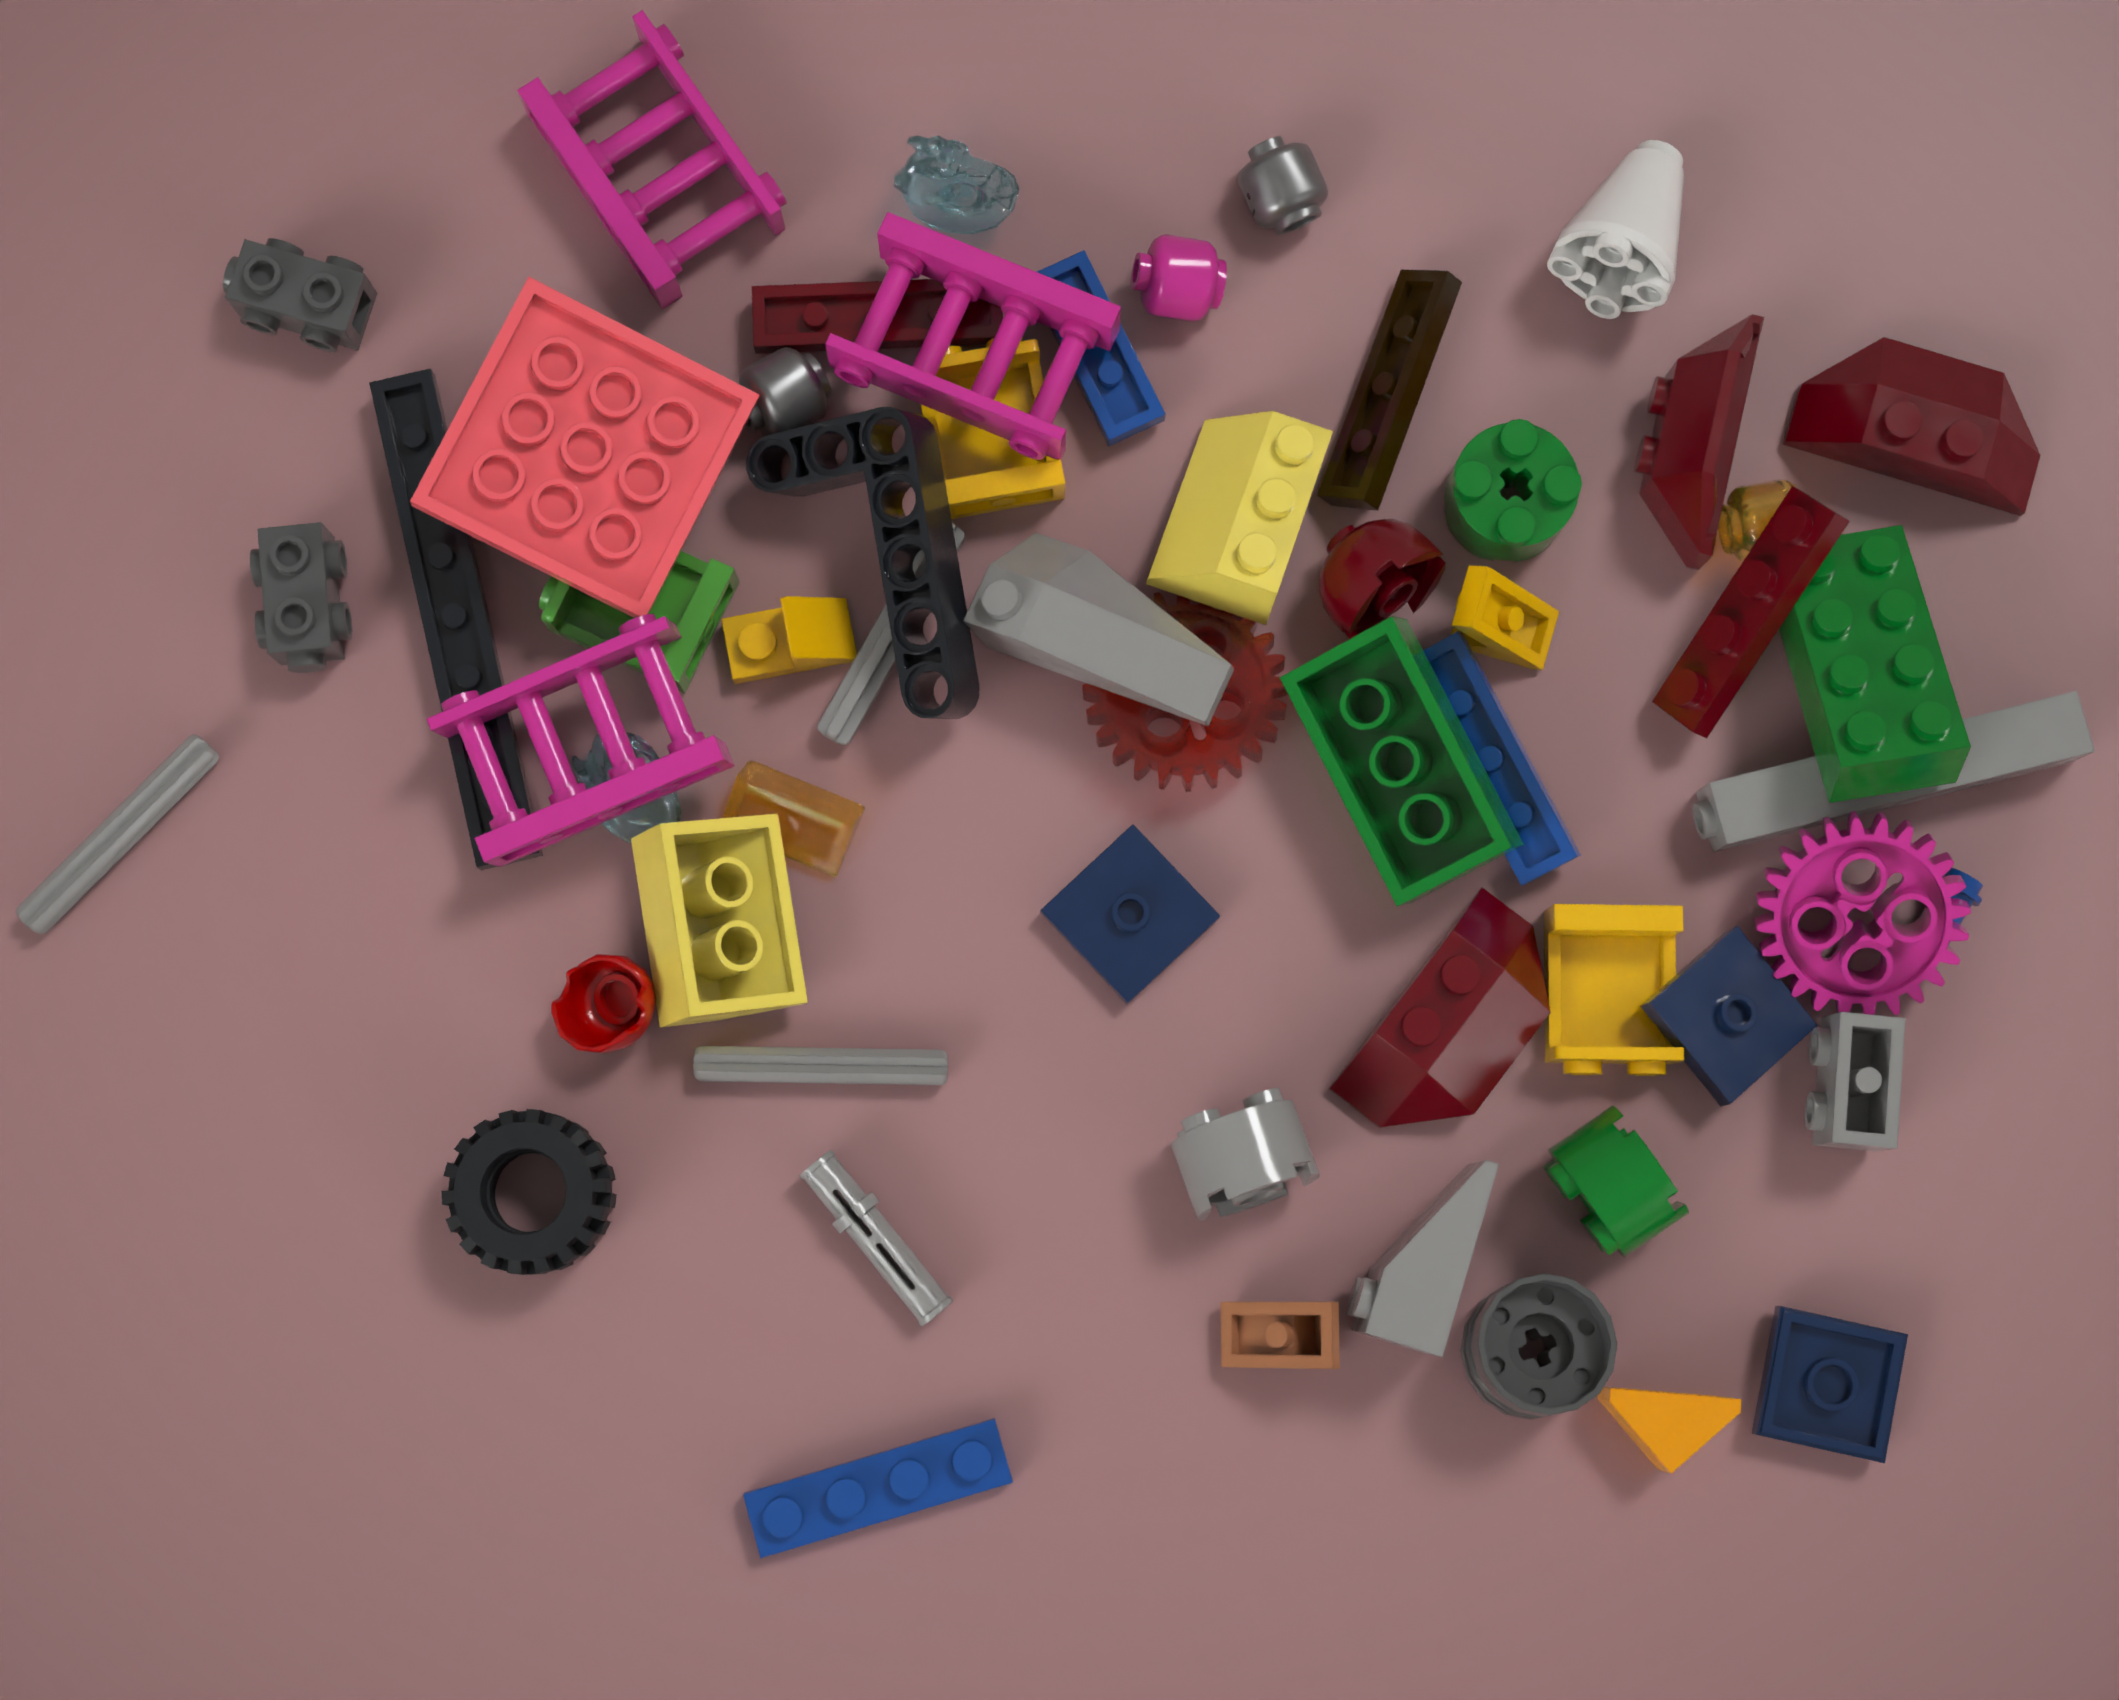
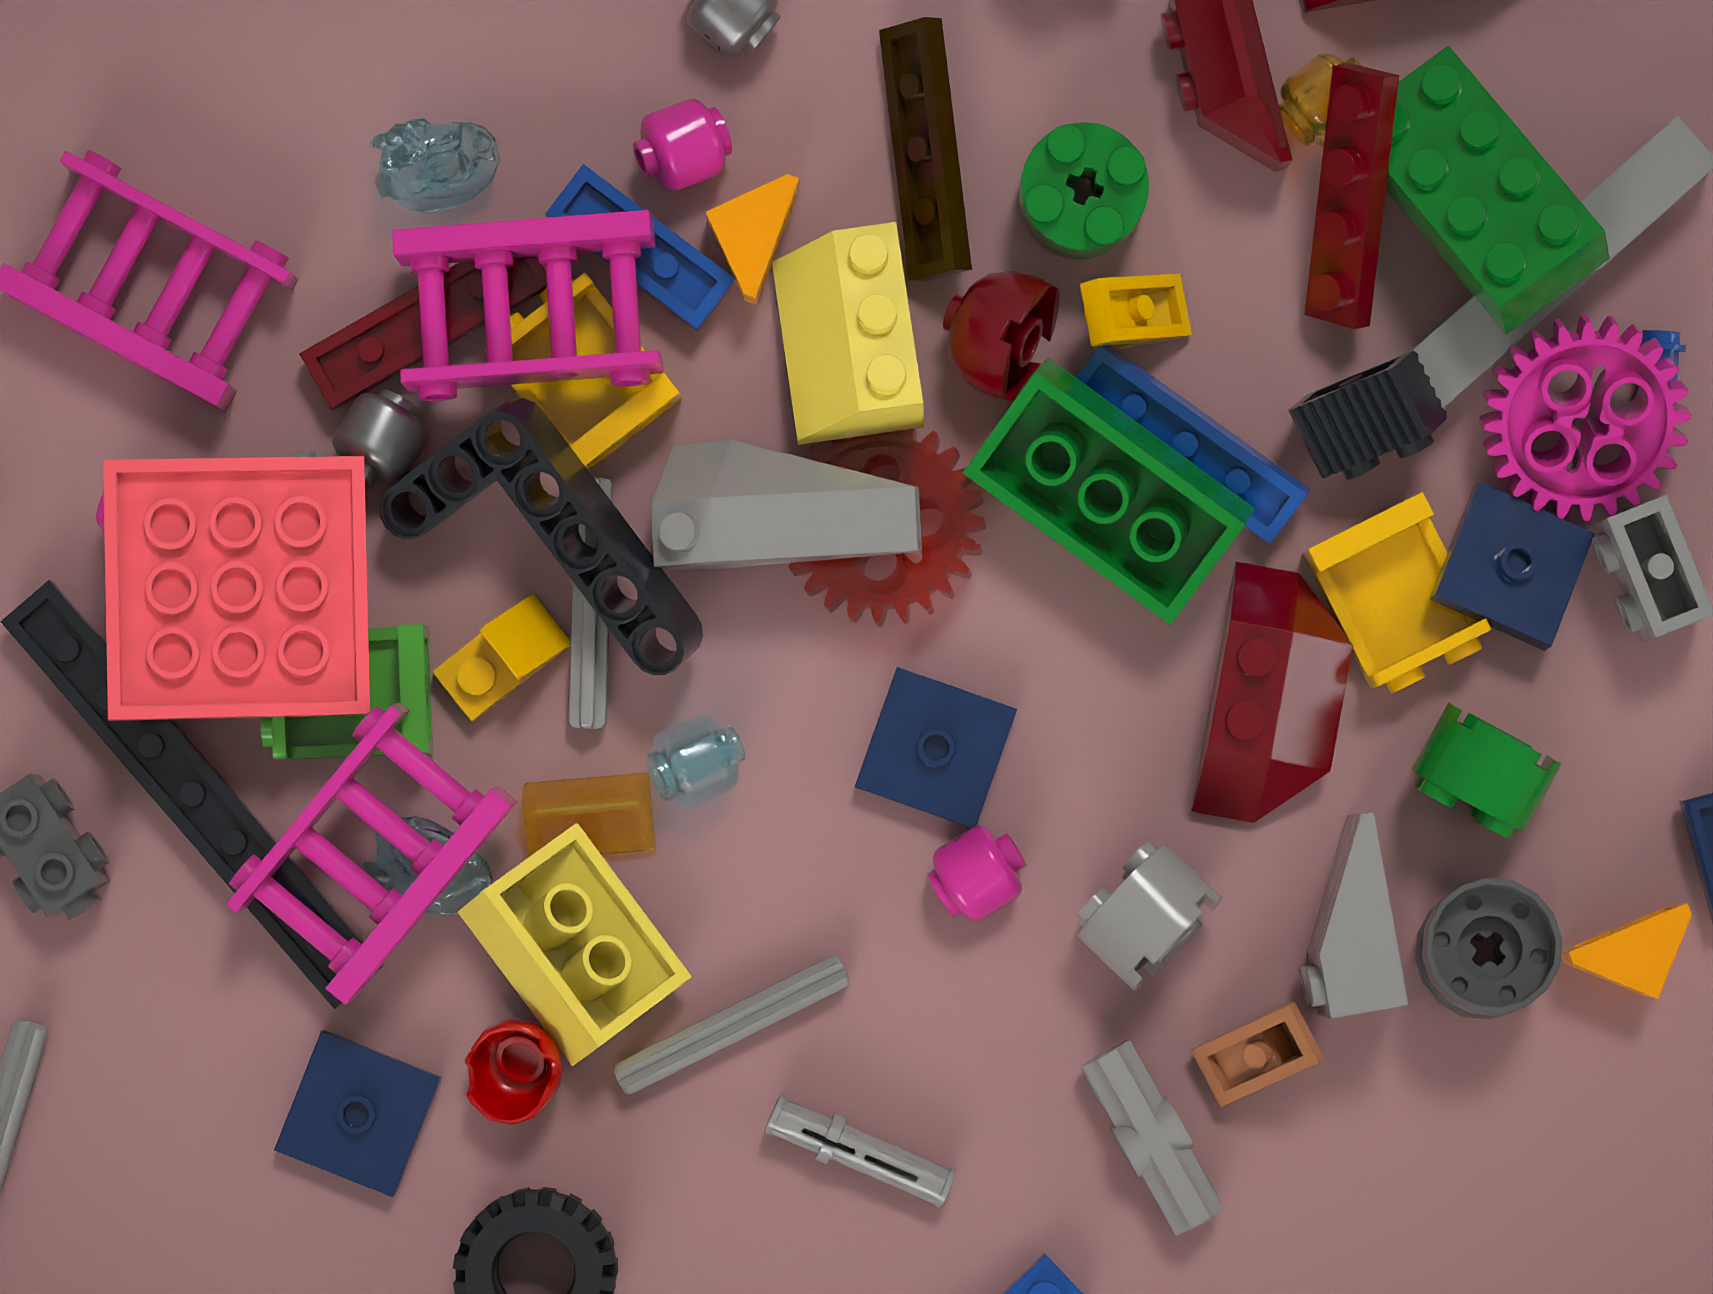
camera: 25 degrees left, 5 degrees up
(449, 972) = (357, 1113): none -> dark blue plate
(910, 814) = (695, 761): none -> clear light blue head
(1109, 1042) = (977, 873): none -> dark pink head
(1145, 1362) = (1152, 1137): none -> light grey piece
(1202, 380) = (751, 231): none -> light orange slope
(1668, 814) = (1369, 416): none -> black brick

